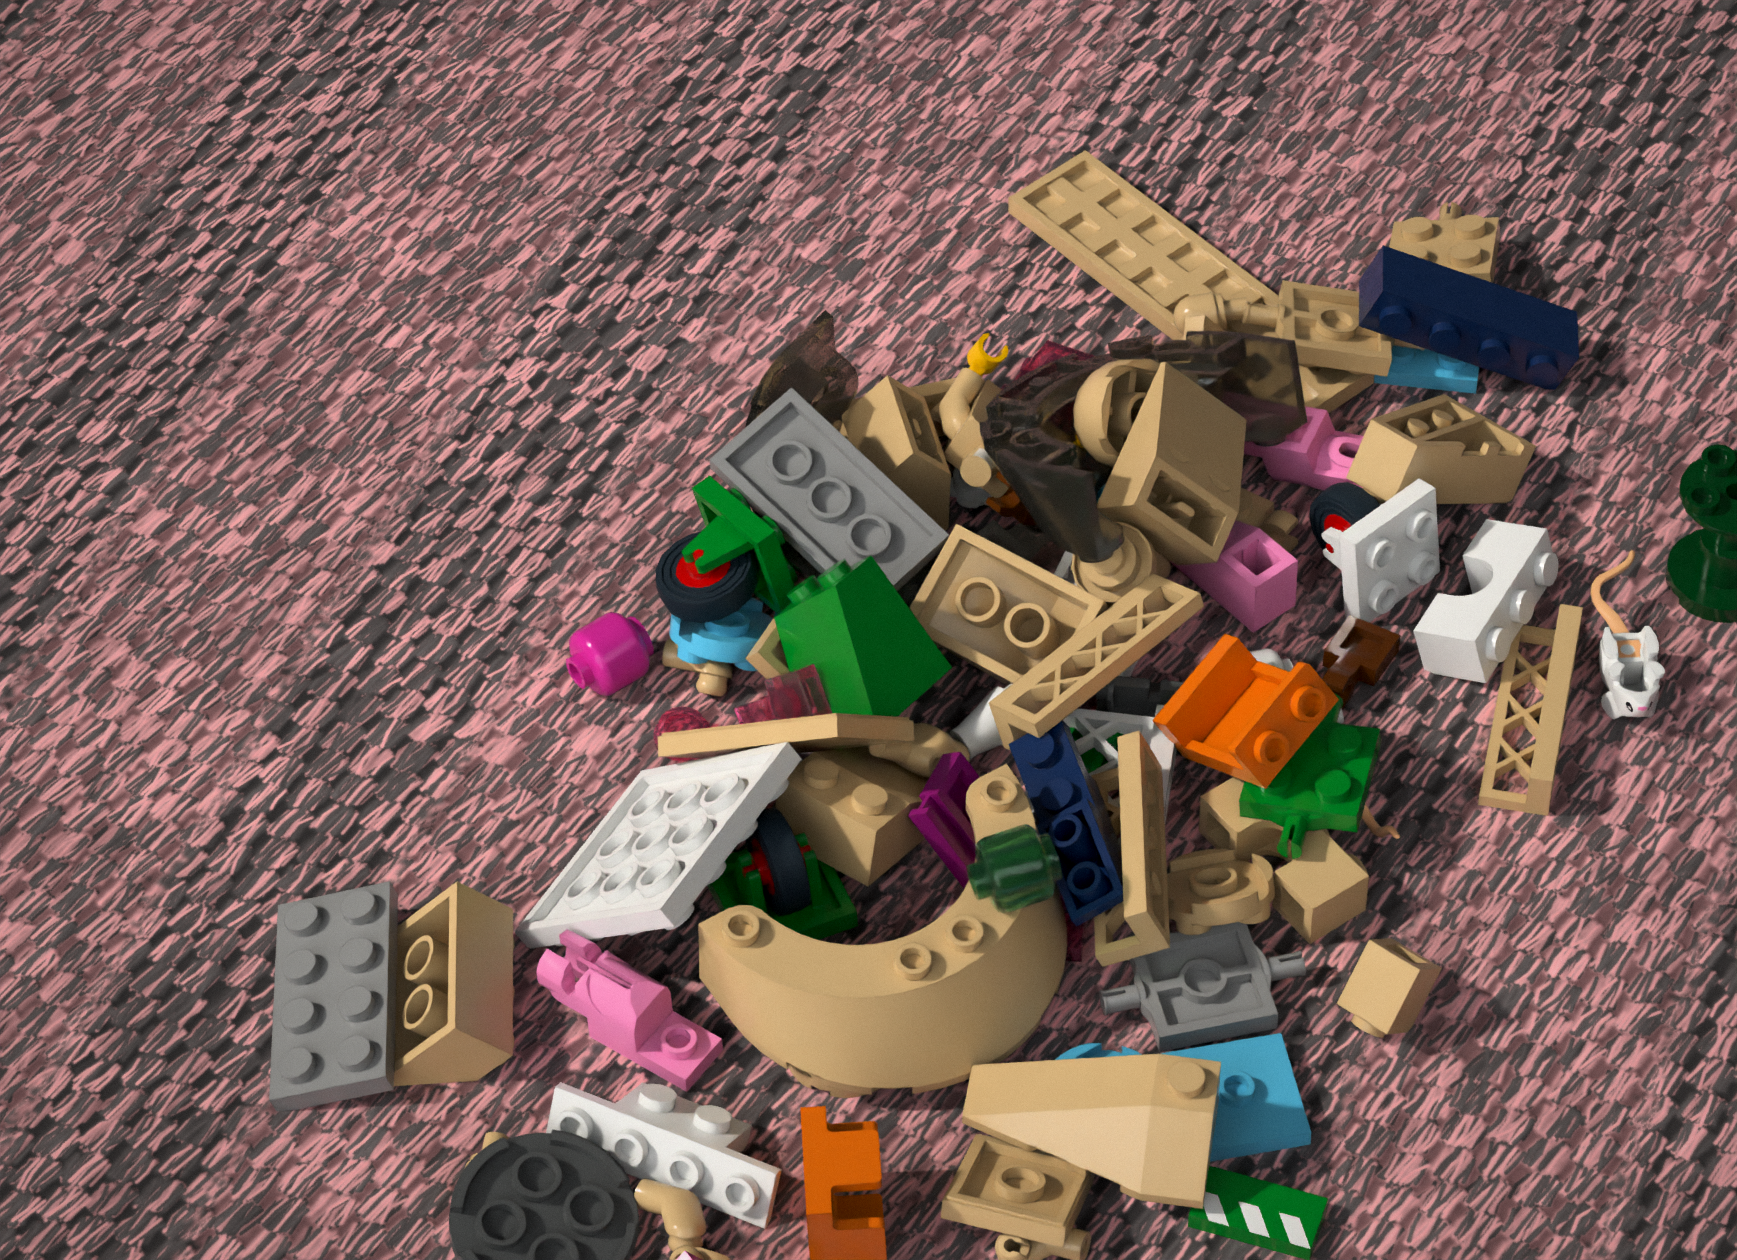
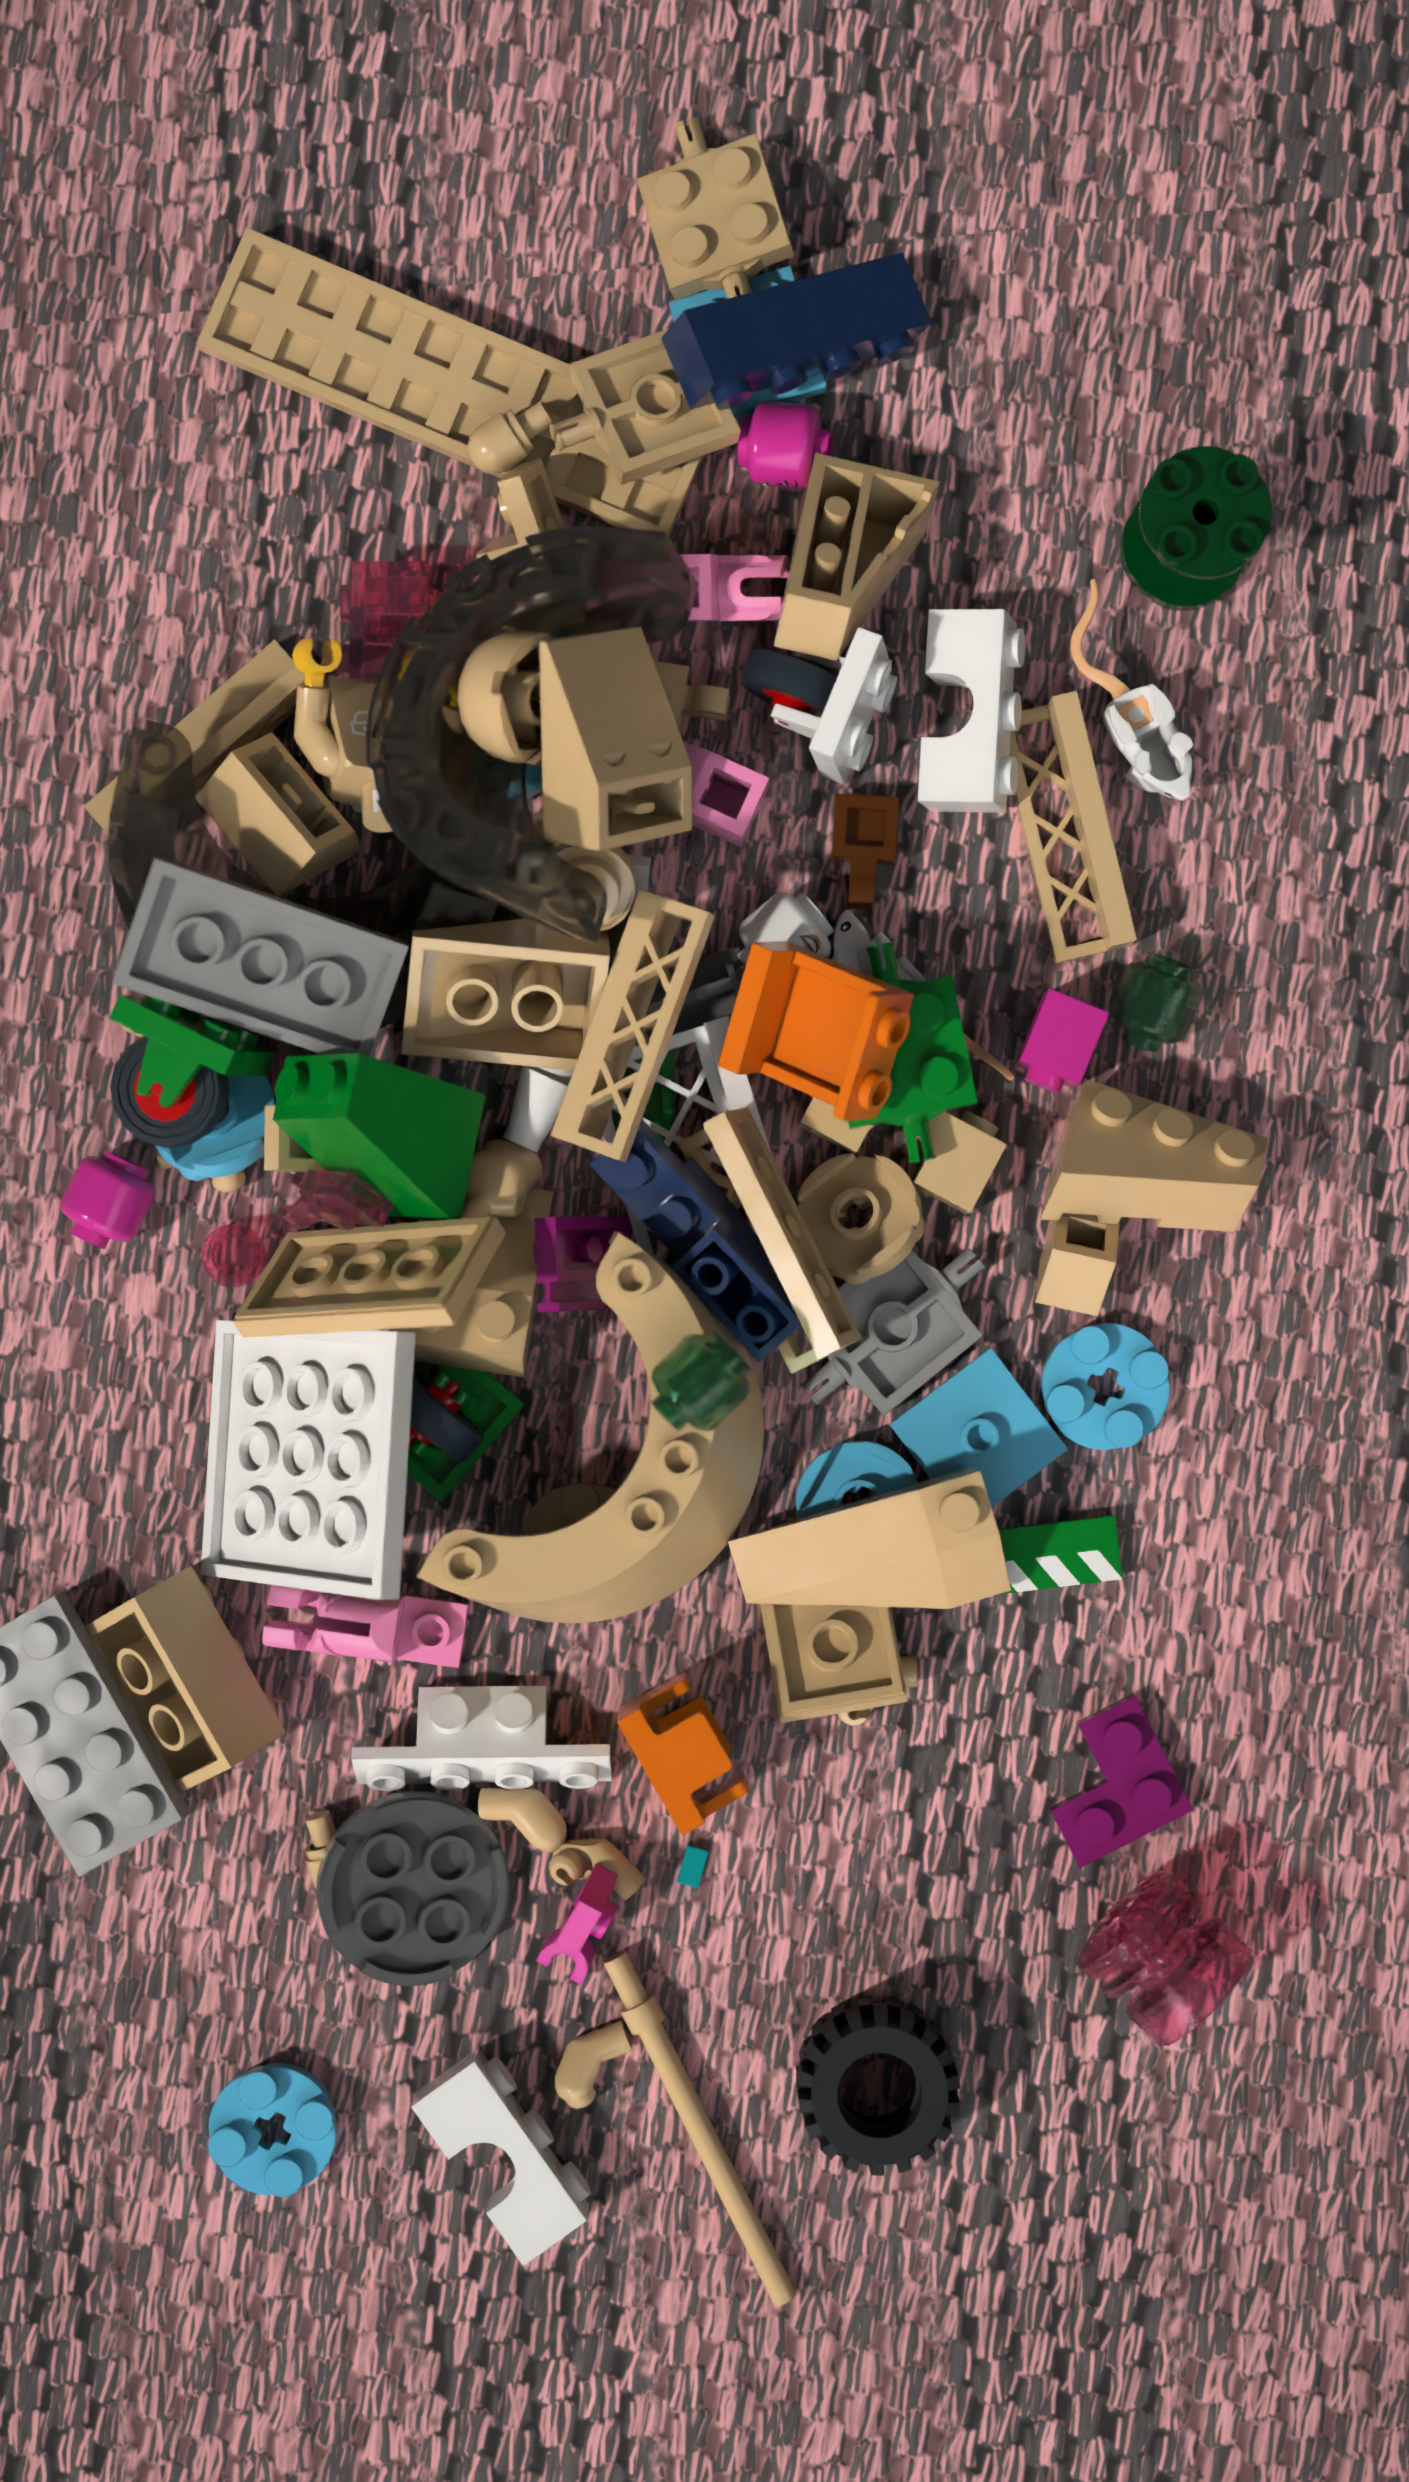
camera: 30 degrees left, 40 degrees up
(1369, 1073) = (1140, 1374): none -> medium azure plate
(1419, 382) = (781, 443): none -> dark pink head
(1454, 833) = (1060, 1041): none -> dark pink brick
(1491, 934) = (1151, 1162): none -> tan wedge
(1551, 844) = (1156, 1001): none -> clear green head

